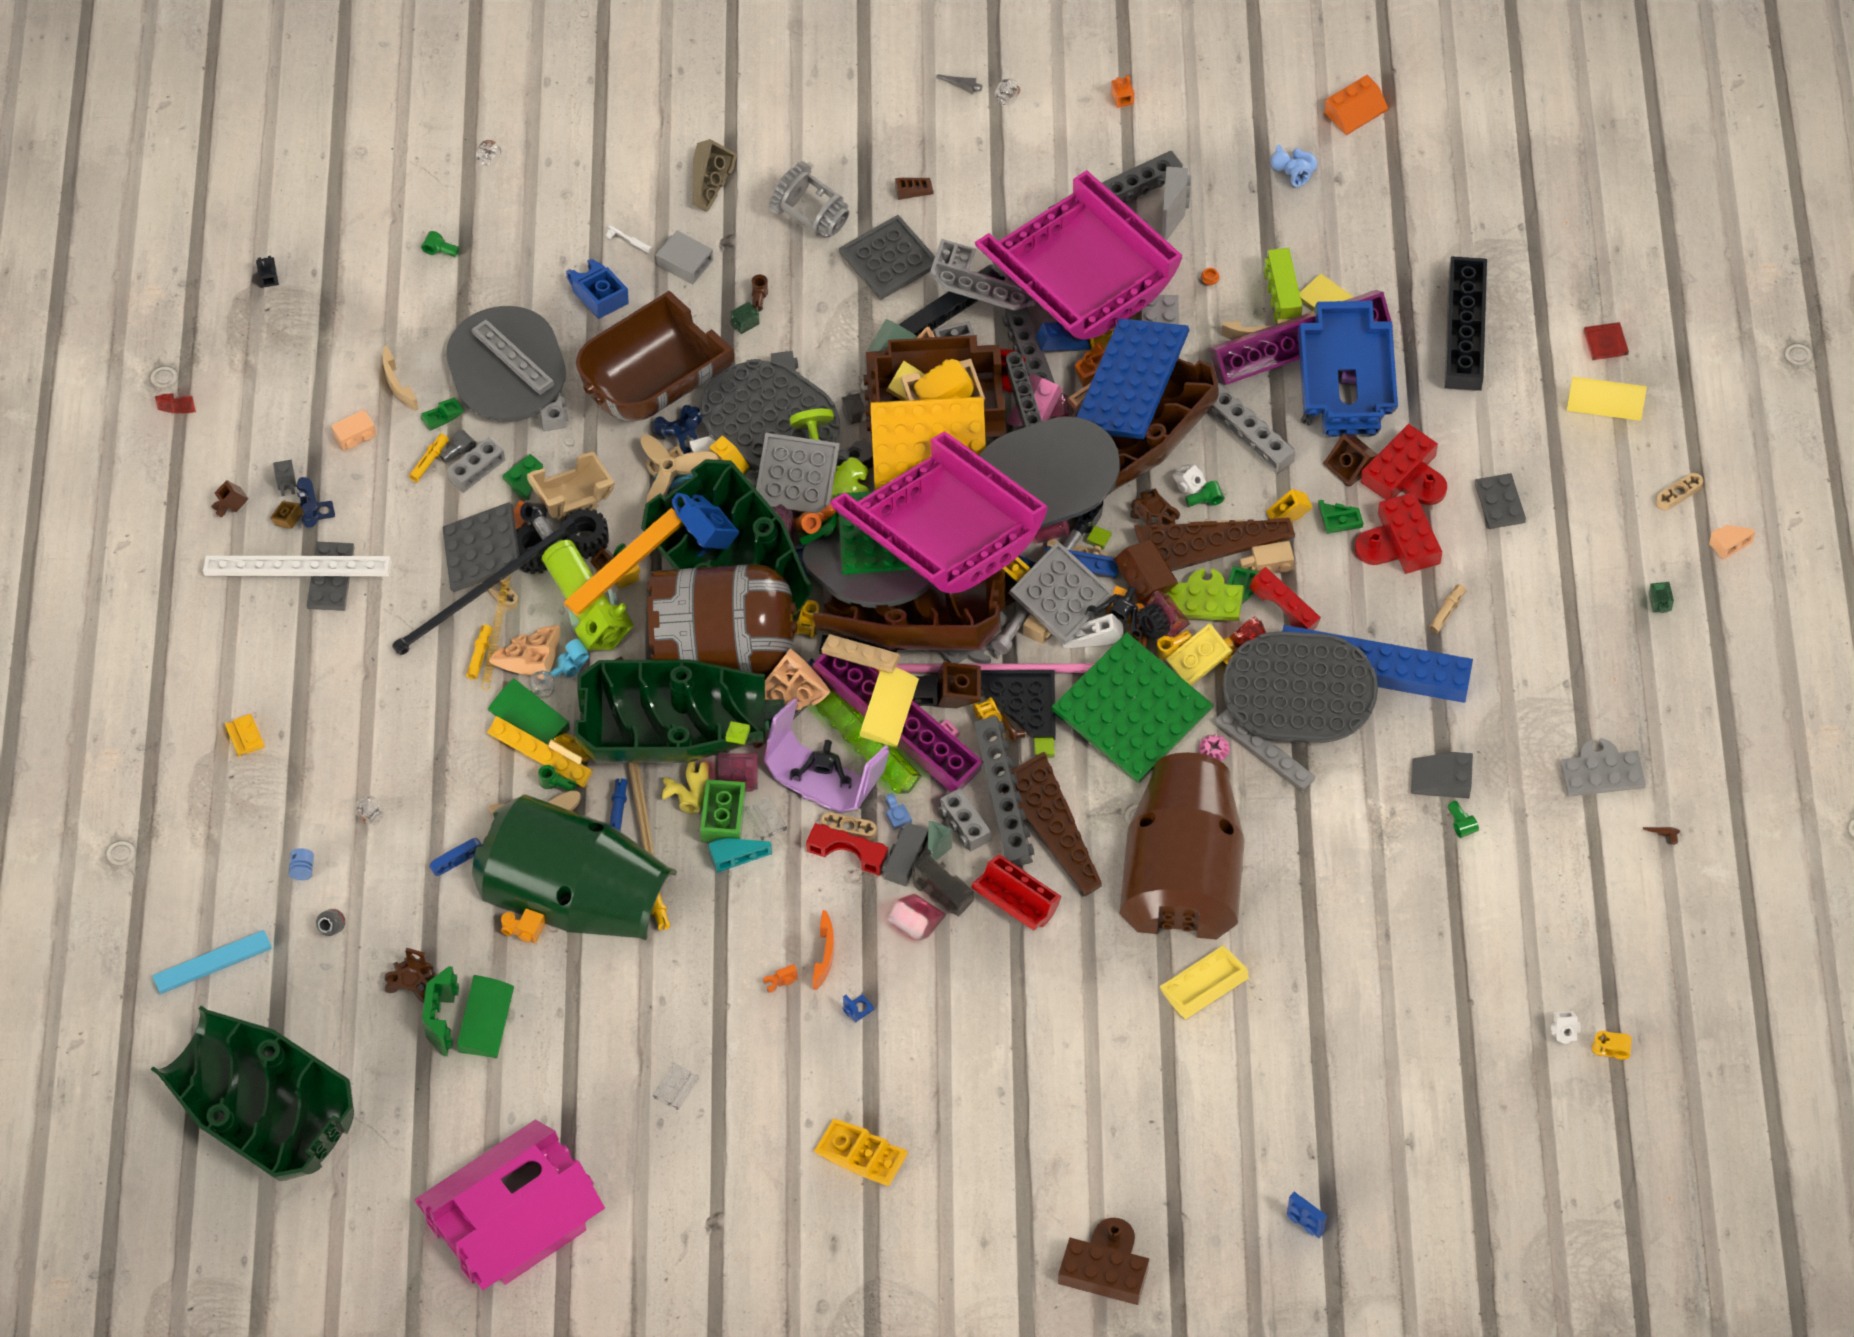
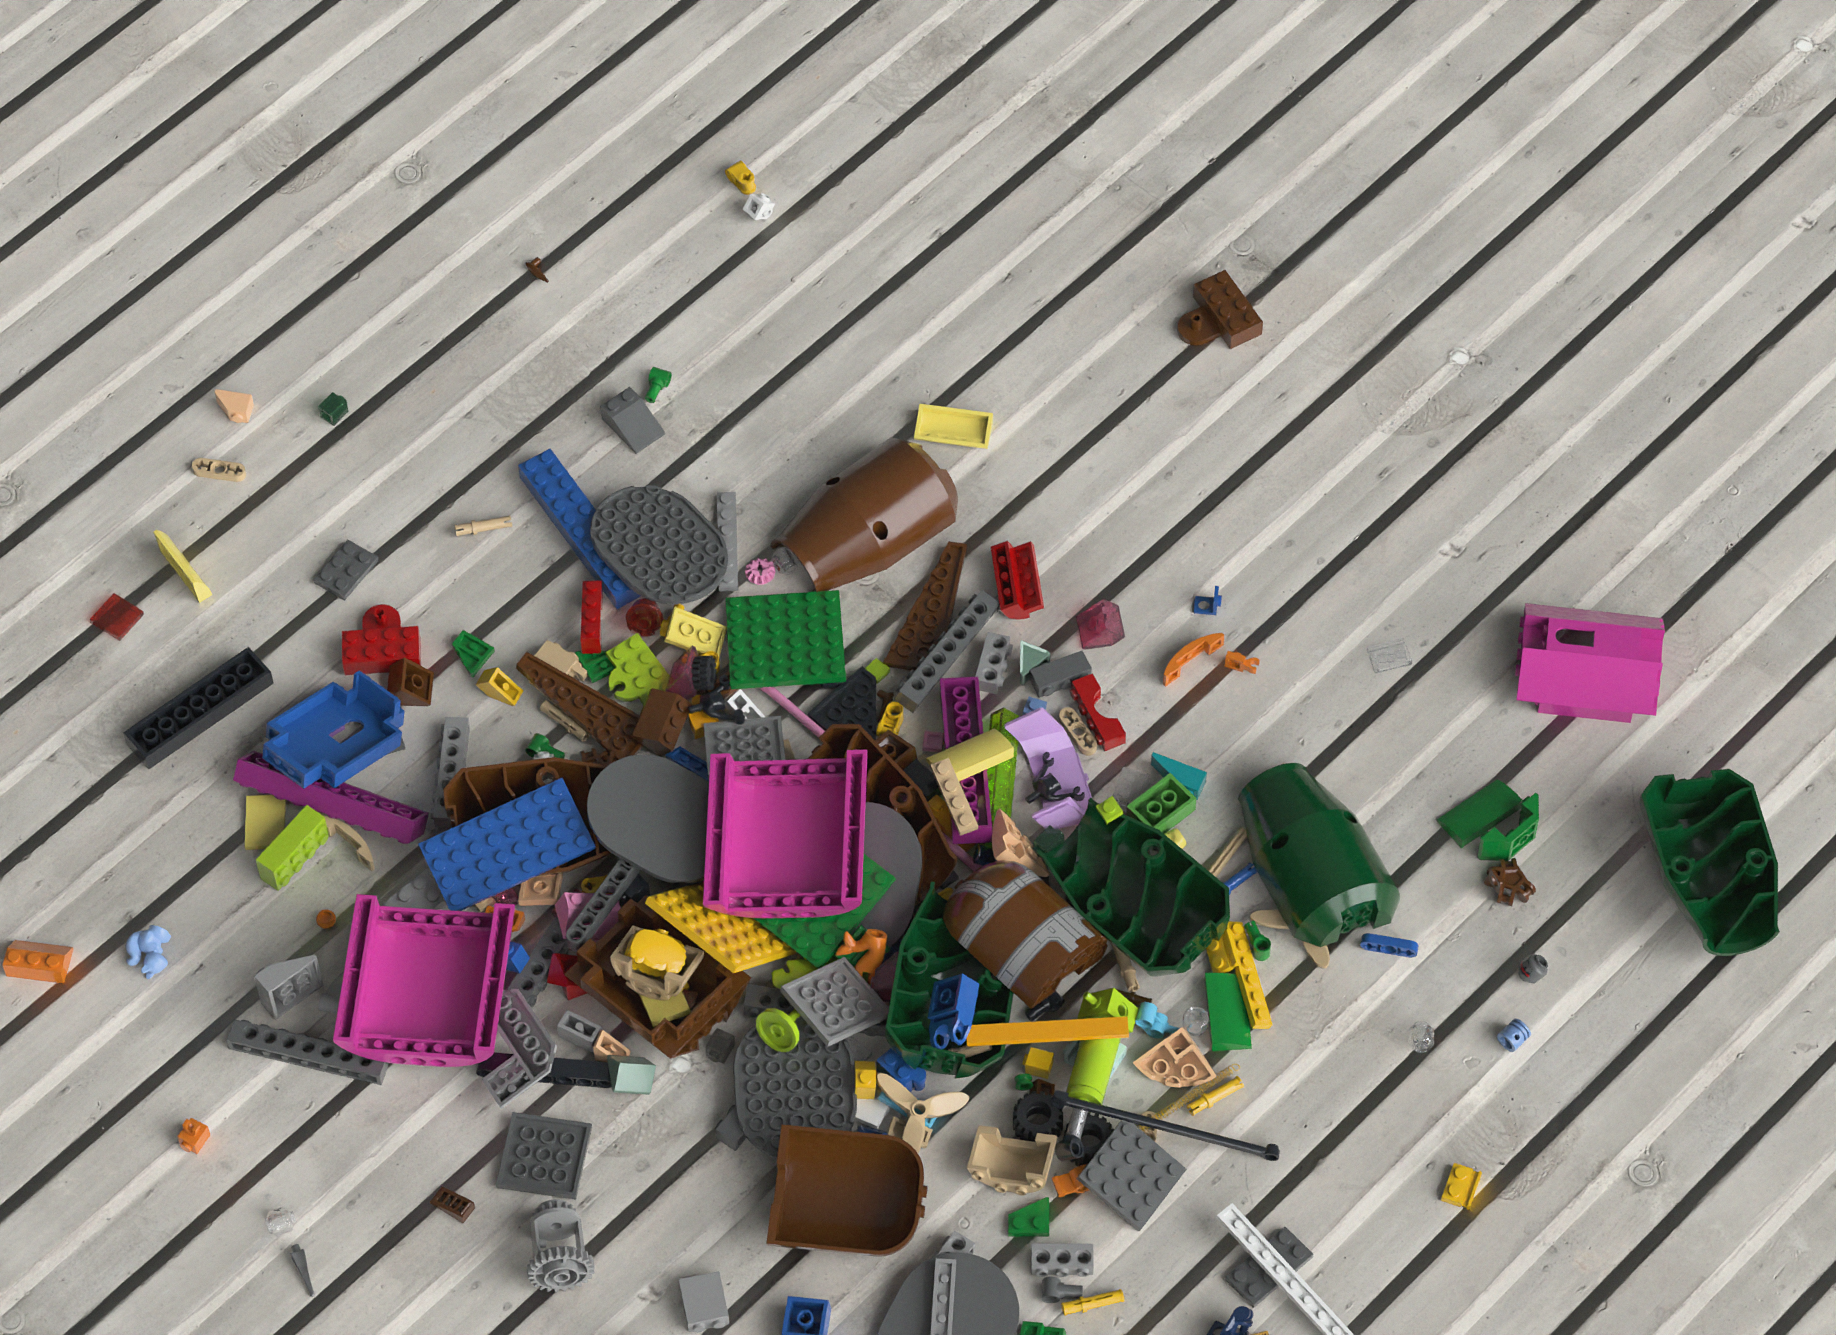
camera: 135 degrees left, 0 degrees up
(212, 962) = (1647, 1021): medium azure tile -> none
(526, 928) = (1389, 848): light orange brick -> none
(744, 317) = (716, 1201): clear green brick -> none
(759, 291) = (681, 1213): reddish brown pin -> none
(861, 1152) = (1307, 508): yellow slope -> none
(940, 885) = (1061, 629): clear smoke wedge -> none
(1306, 1214) = (1063, 231): blue plate -> none
(1403, 536) = (448, 599): red brick -> none
(1602, 770) = (523, 340): light grey plate -> none

